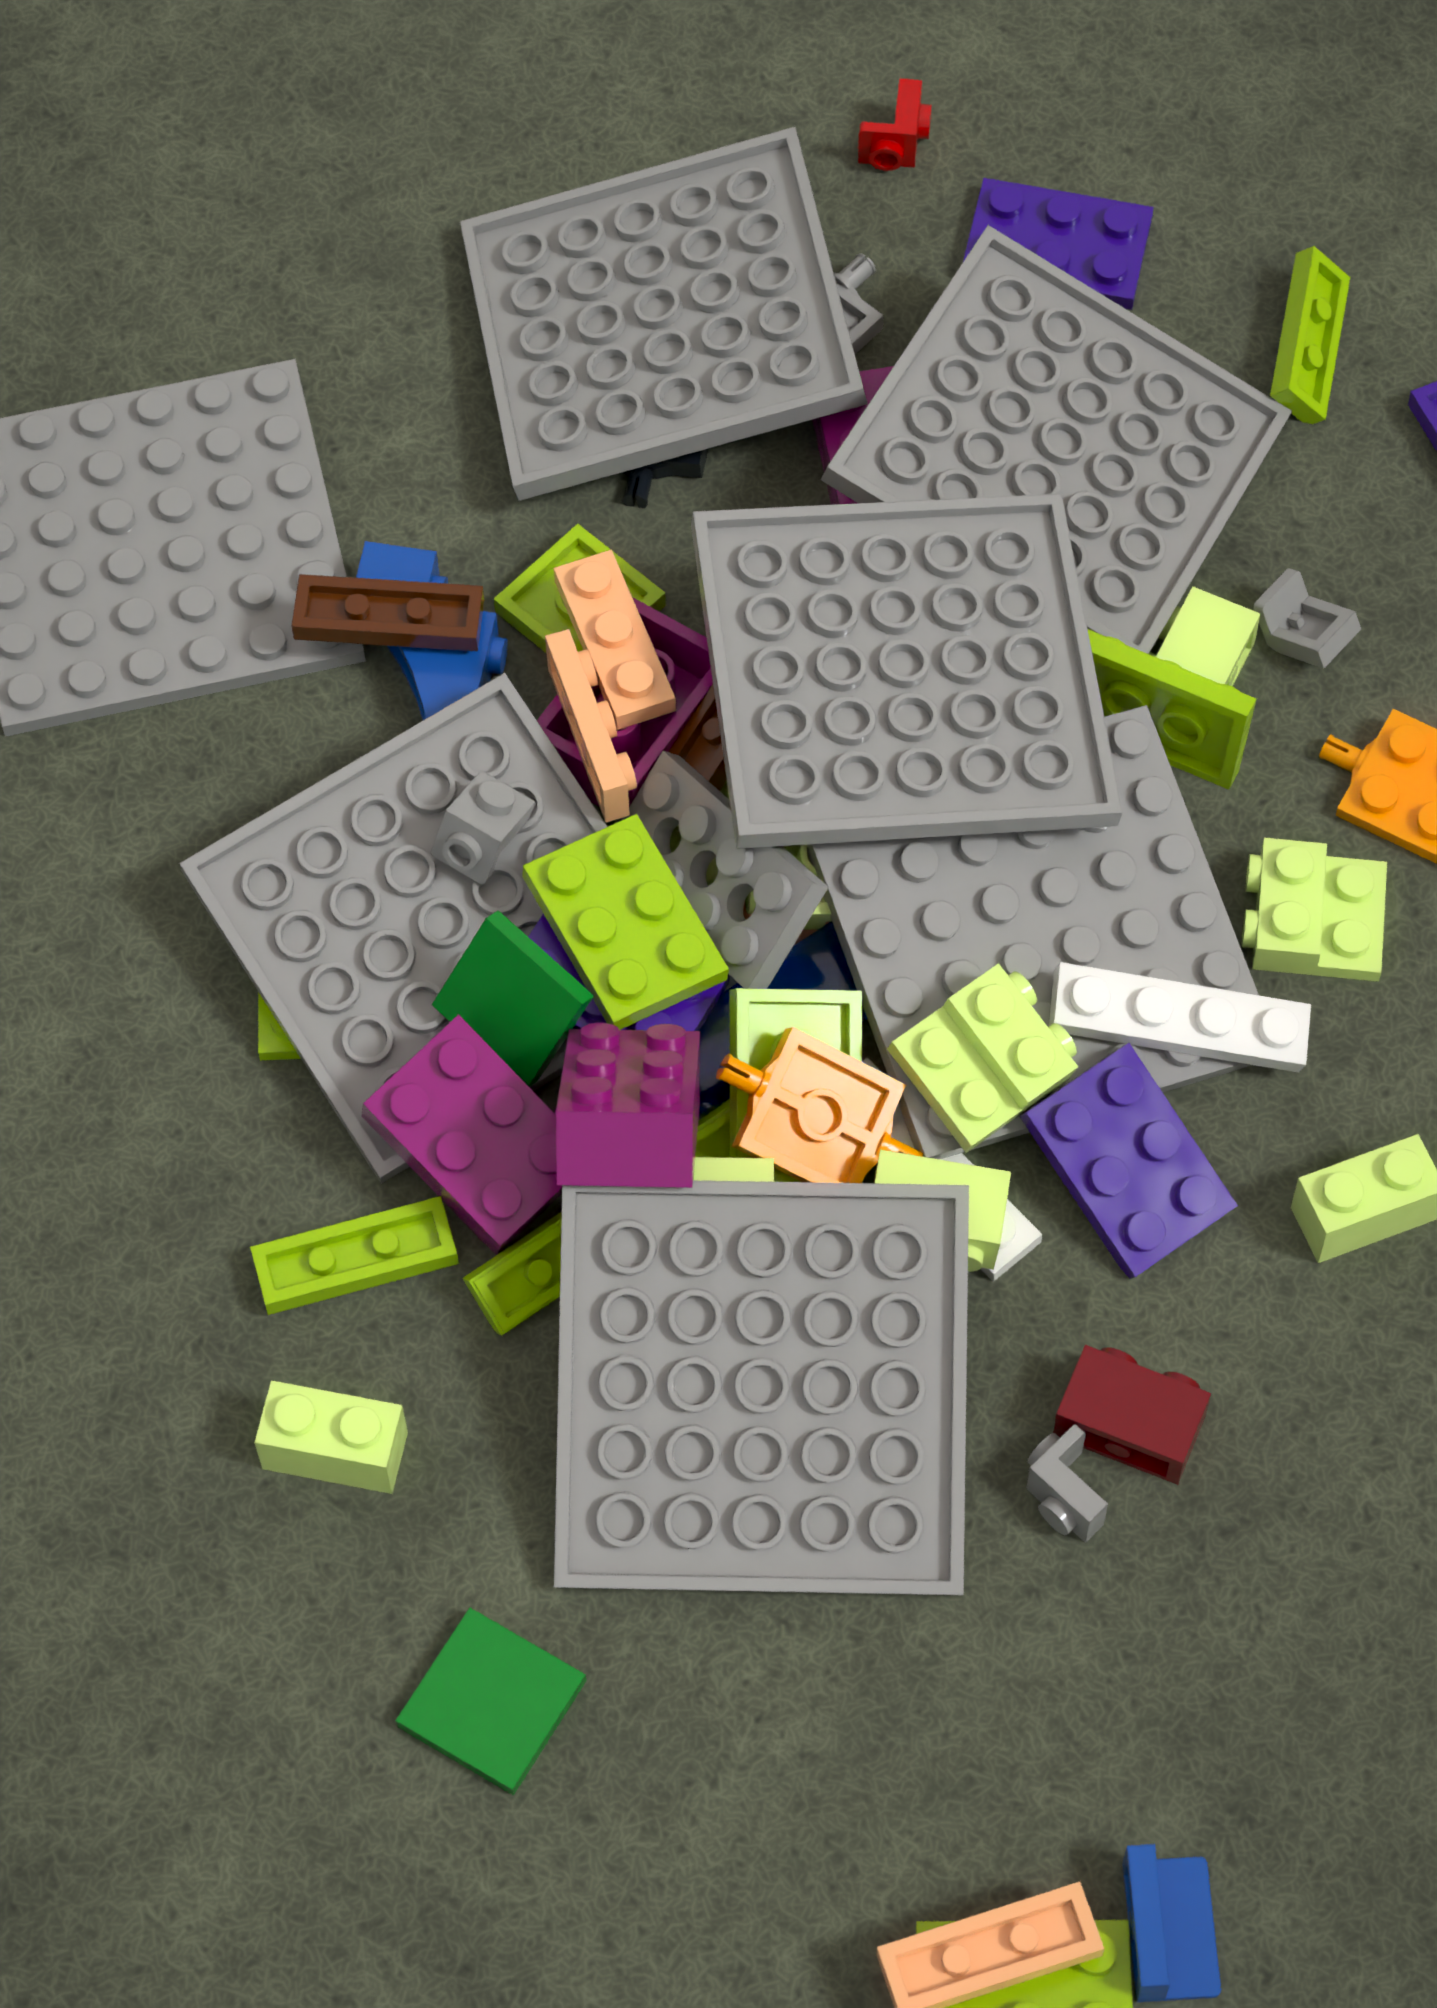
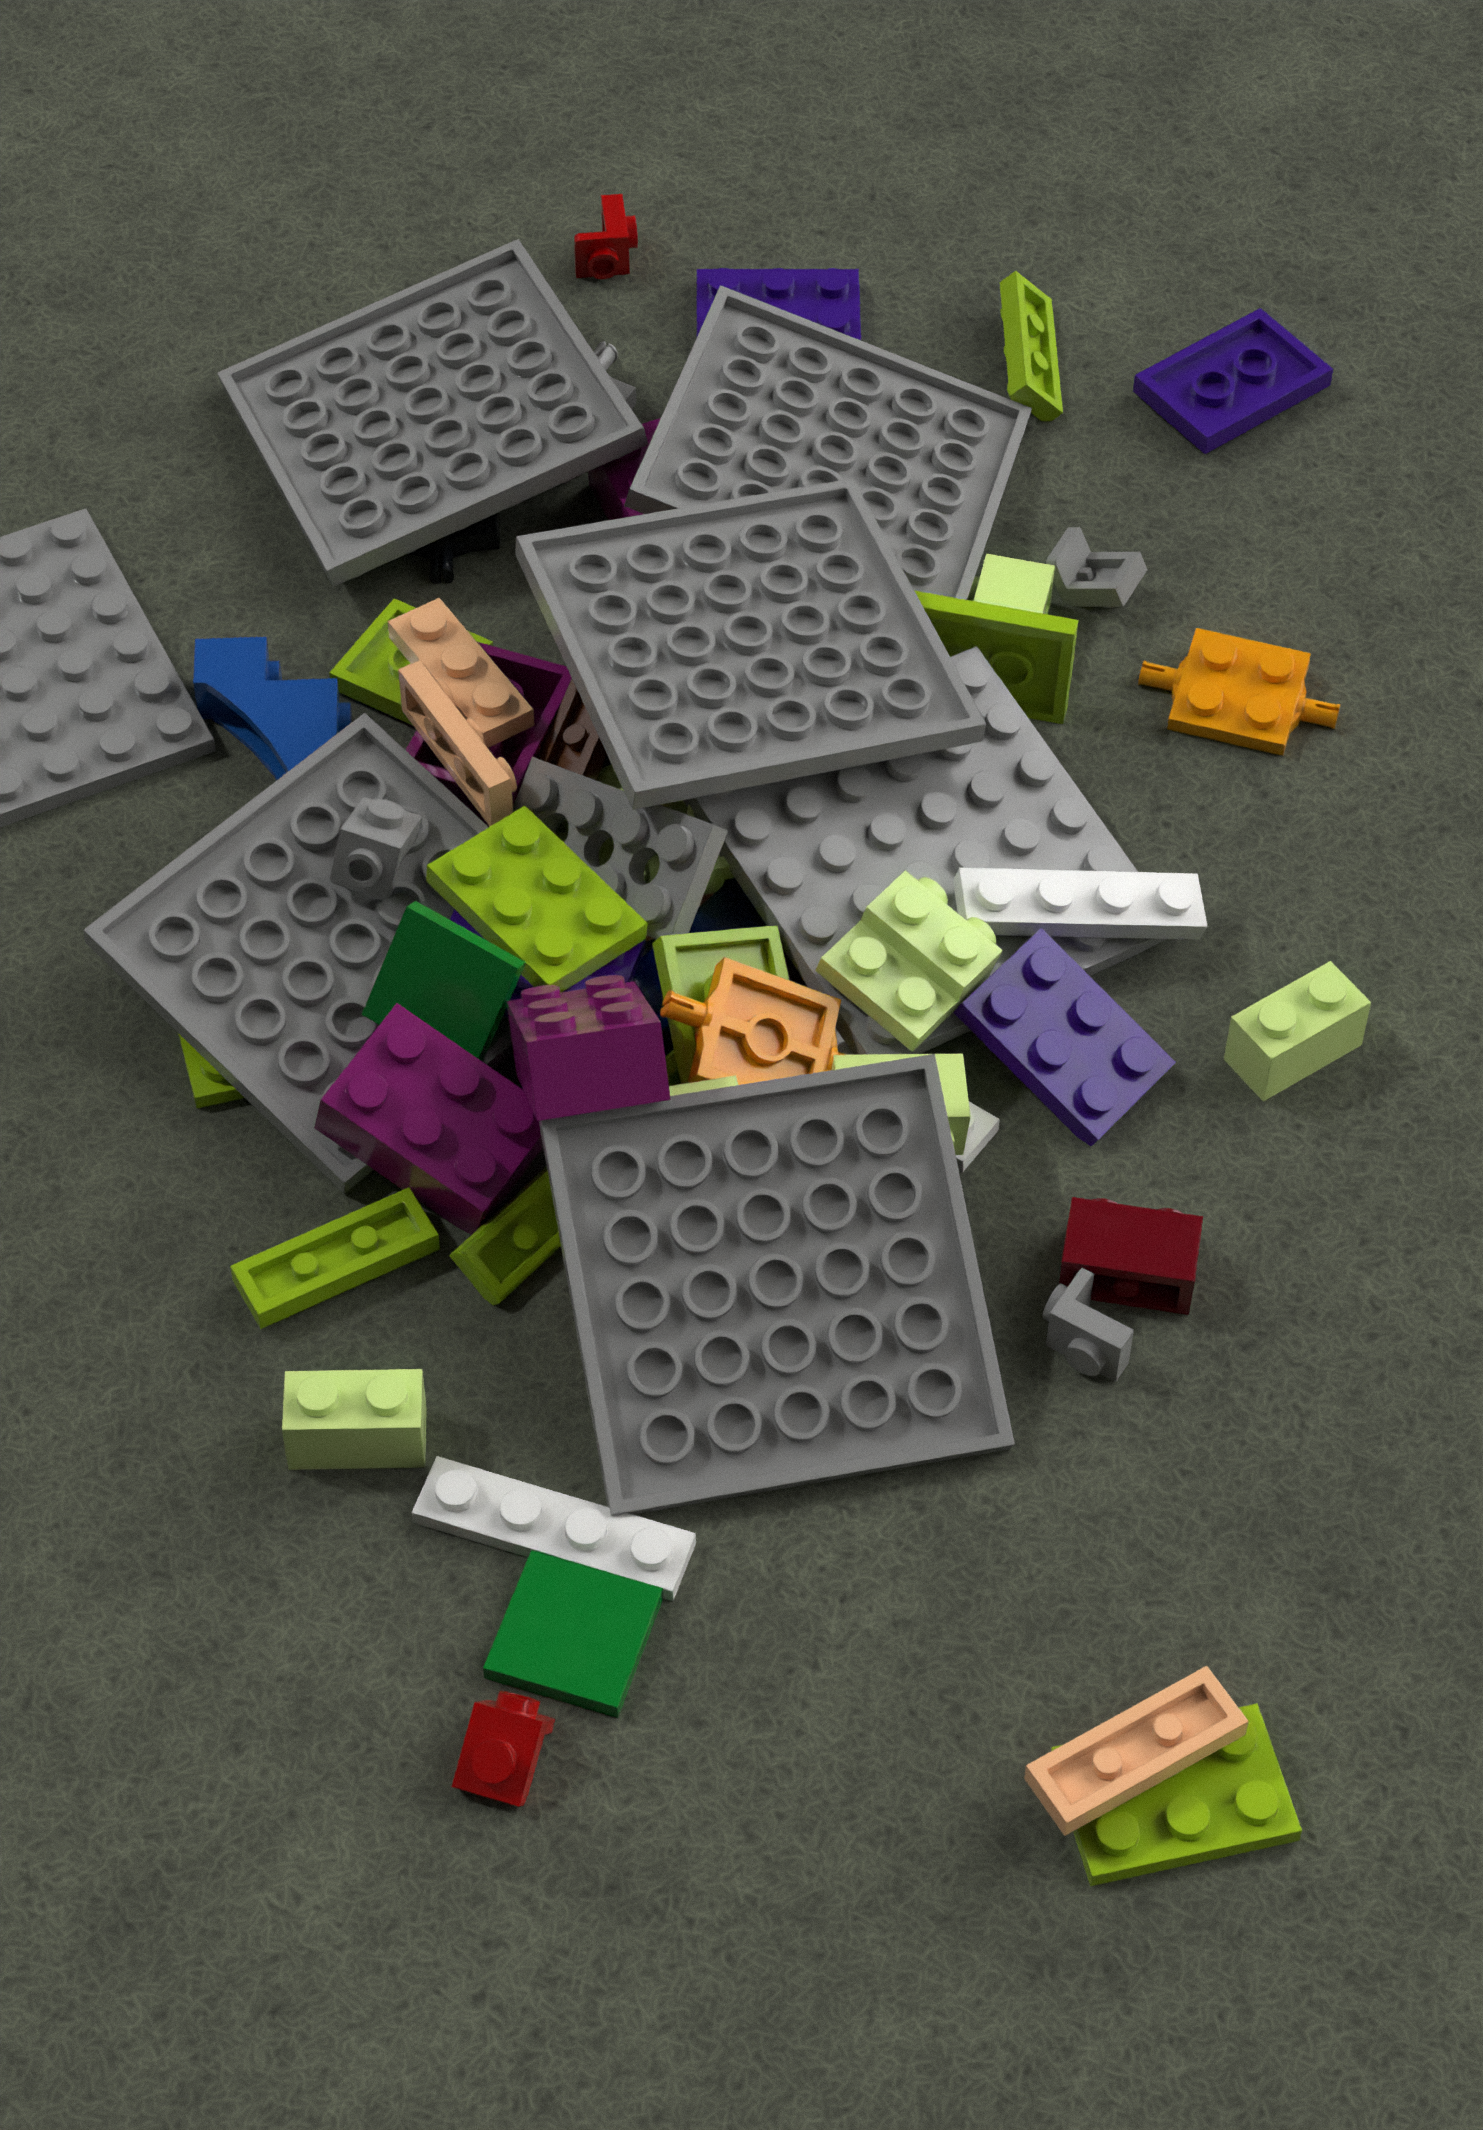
camera: 15 degrees left, 10 degrees down
(388, 612) = (234, 688): reddish brown plate -> none
(395, 1806) = (502, 1748): none -> red bracket
(497, 1585) = (533, 1518): none -> white plate
(1170, 1926) = (1296, 1702): blue panel -> none
(1315, 911) = (1173, 806): yellowish green plate -> none

